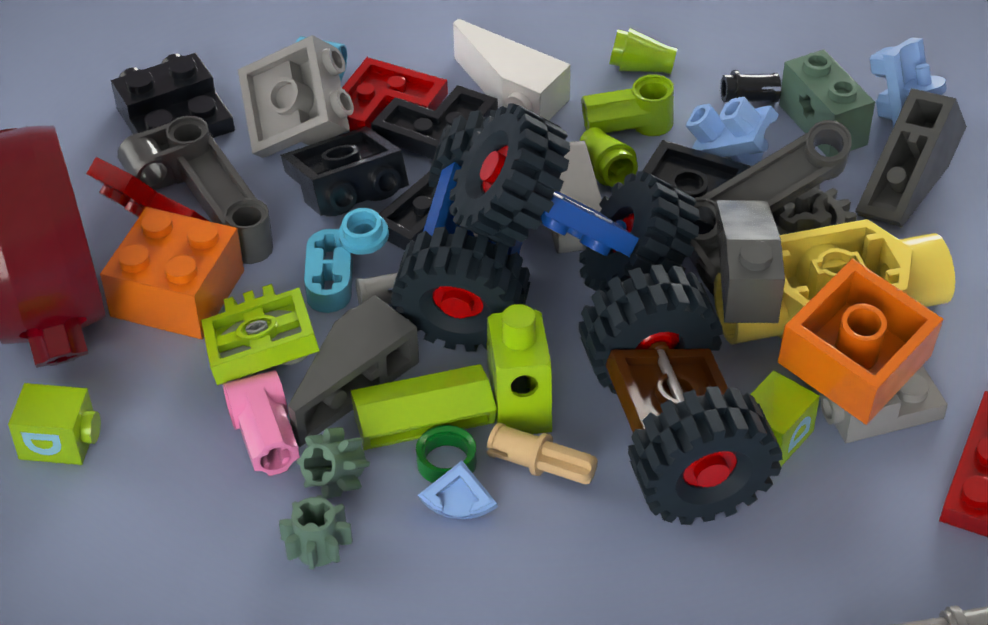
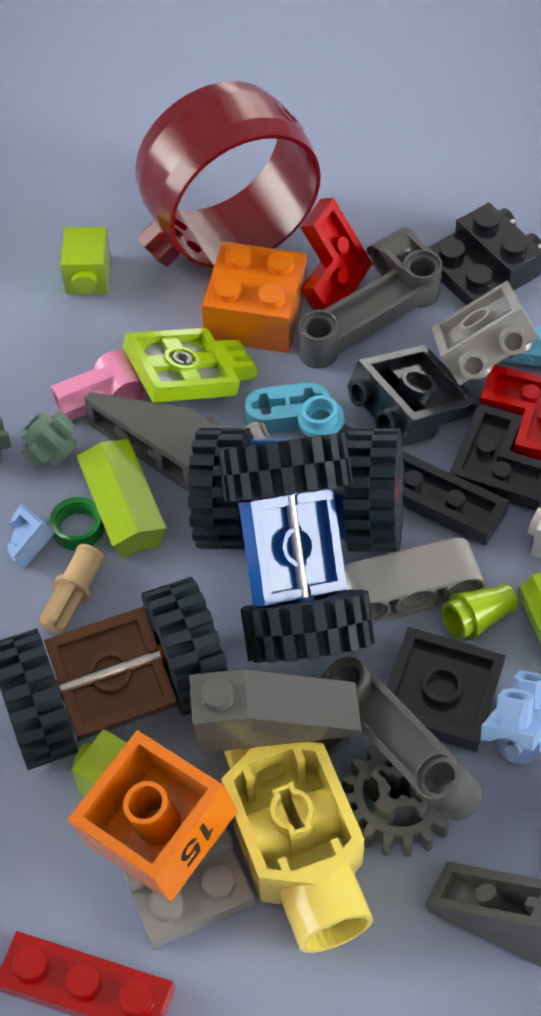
camera: 85 degrees right, 10 degrees up
(517, 349) = (151, 551): lime torso -> none

